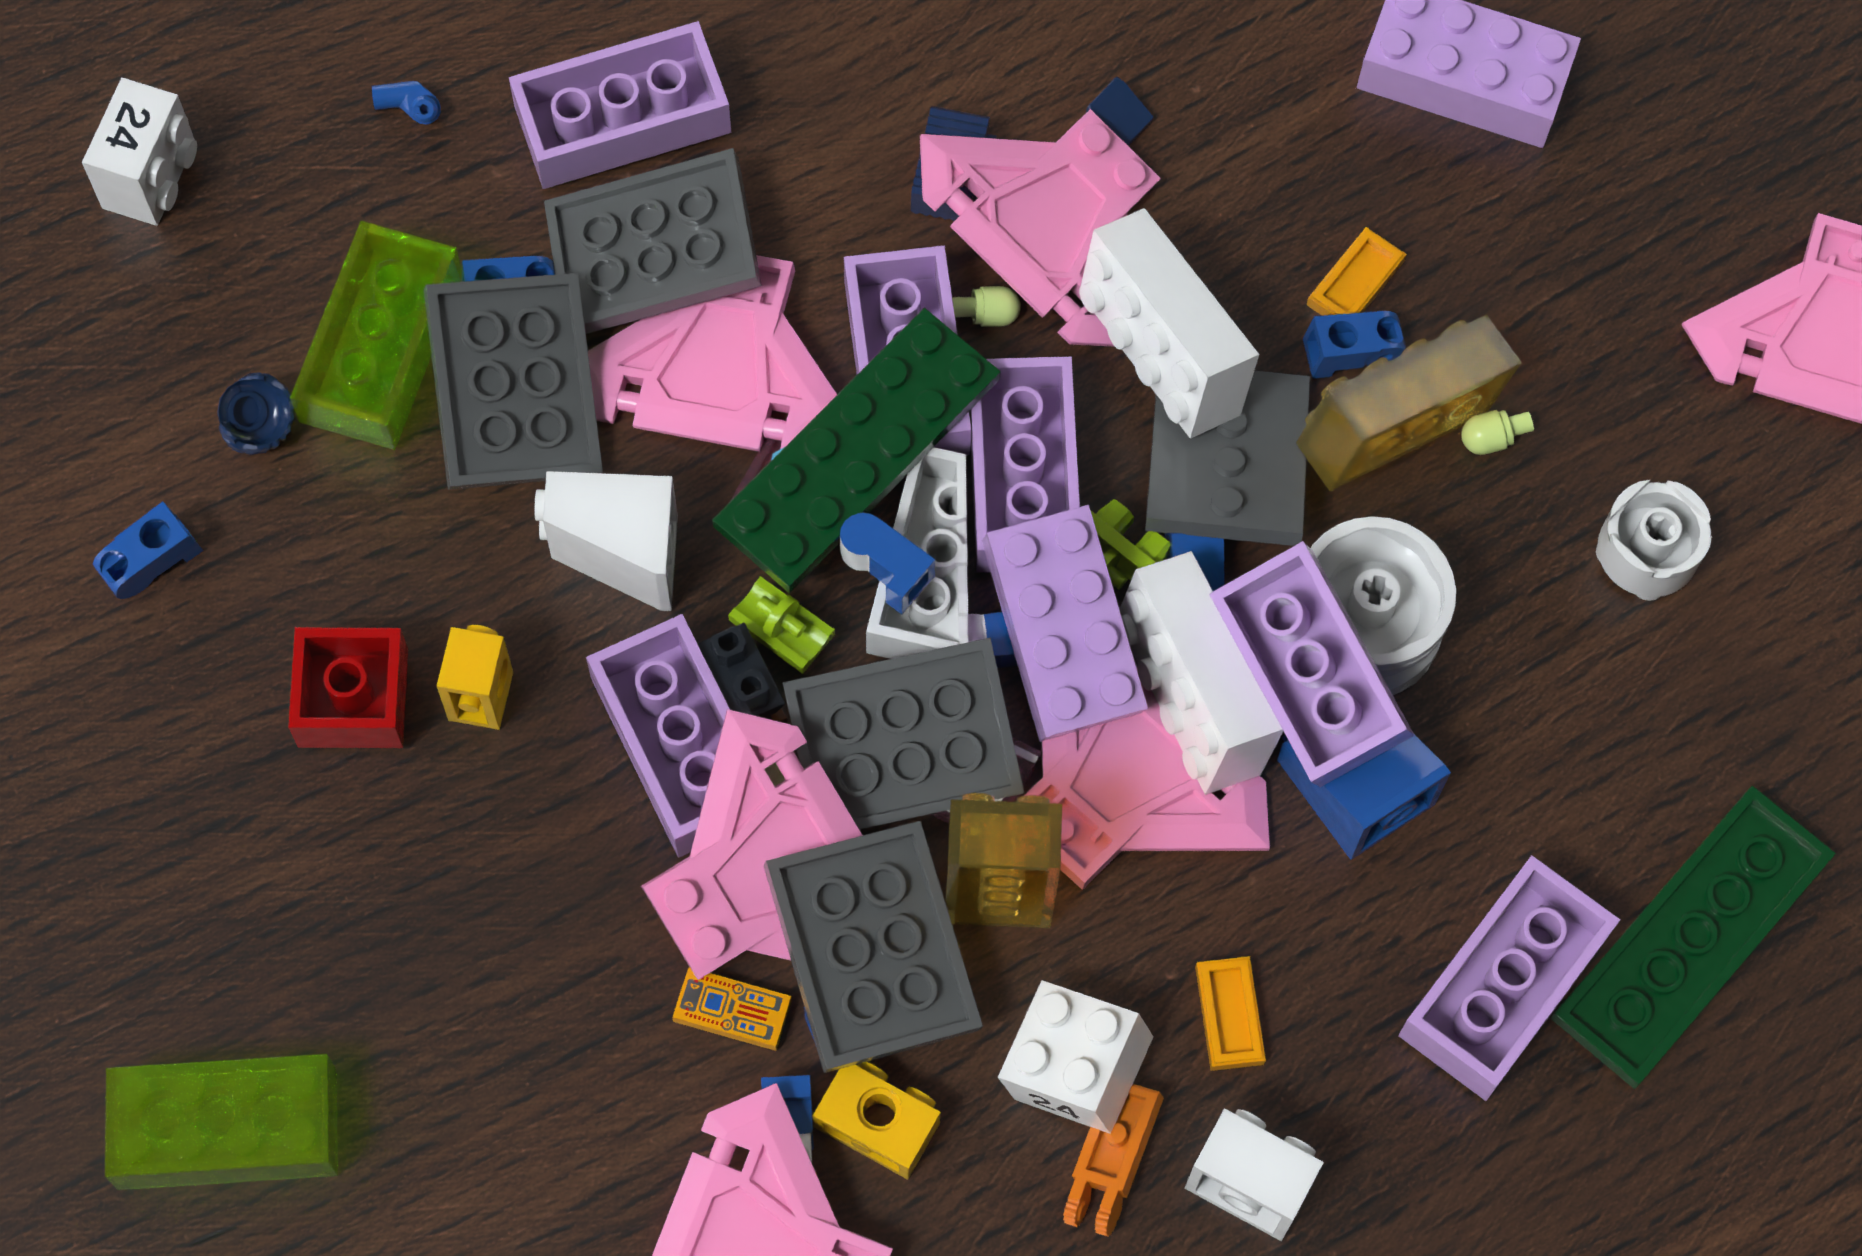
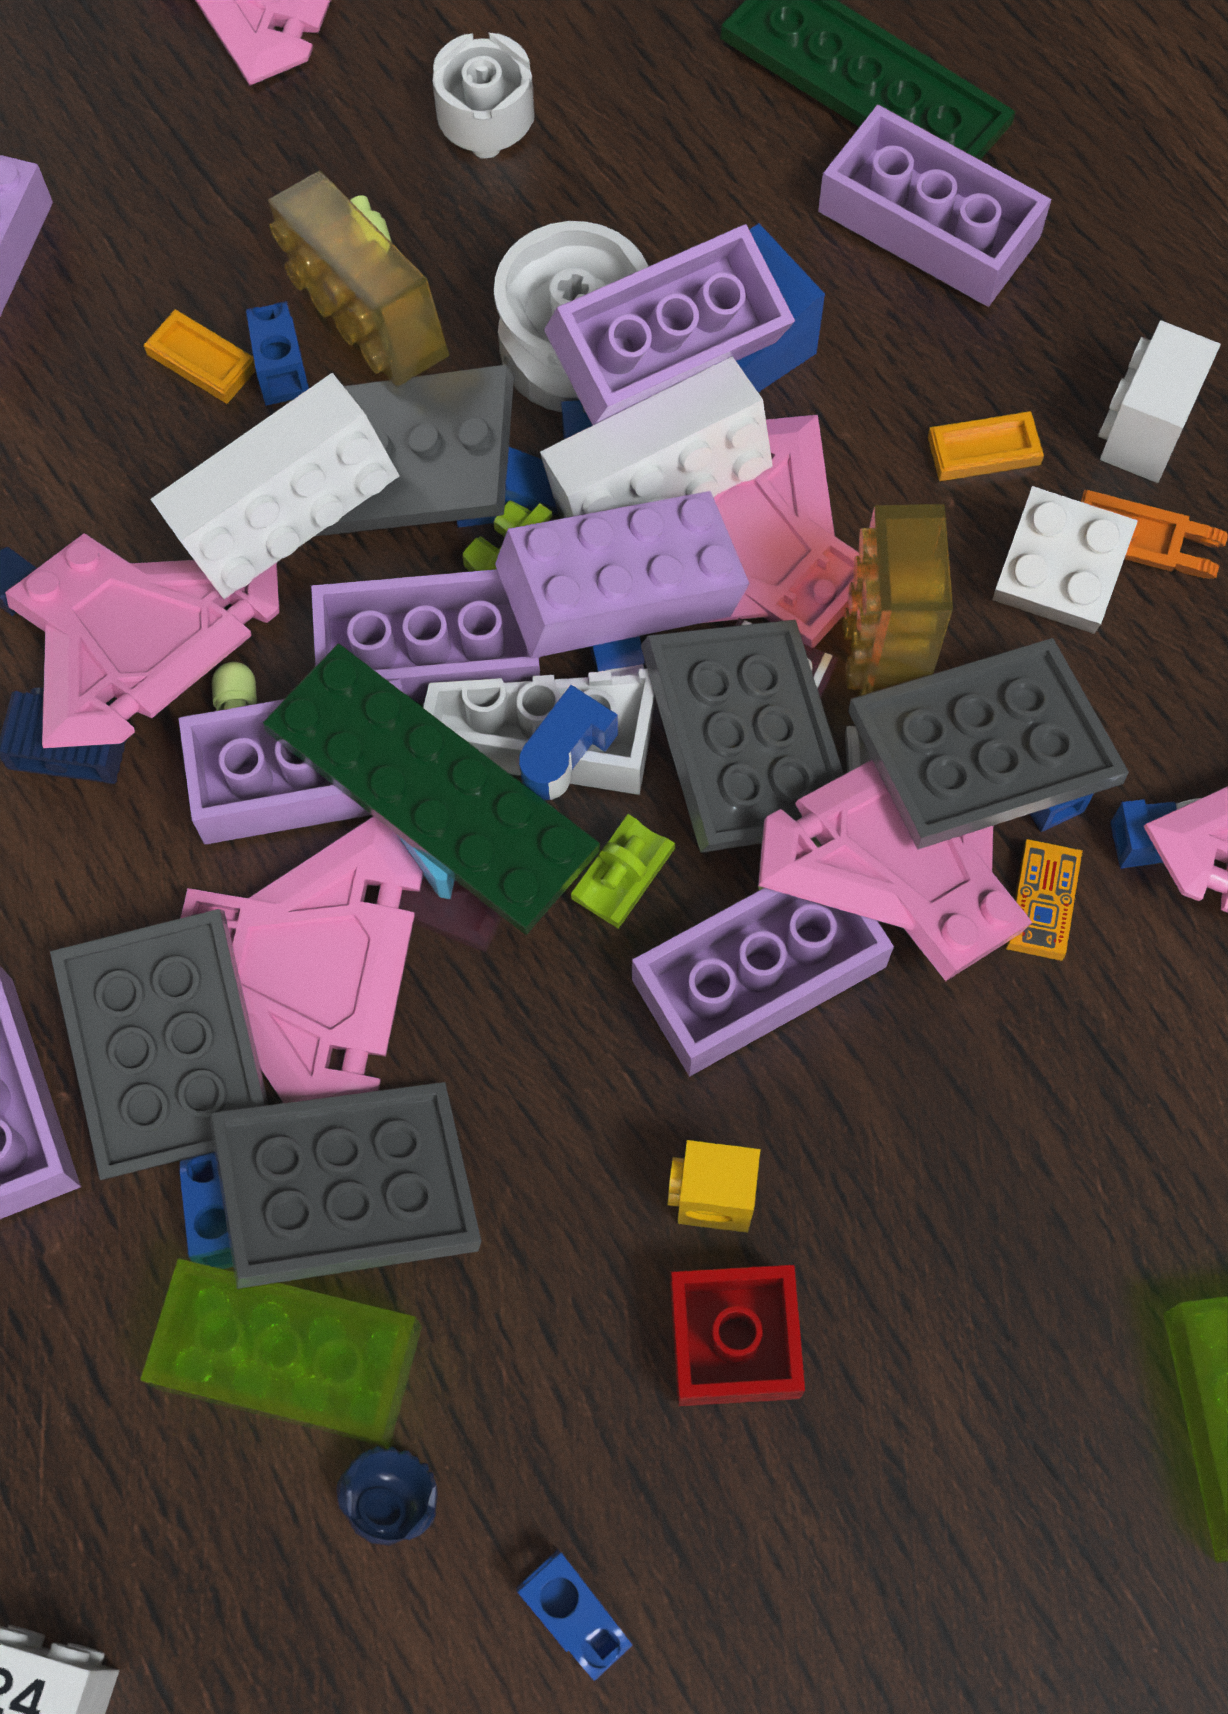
camera: 90 degrees left, 0 degrees up
(613, 530) = (530, 1045): white slope -> none
(743, 674) = (687, 900): black hips -> none
(895, 1145) = (1162, 721): yellow brick -> none

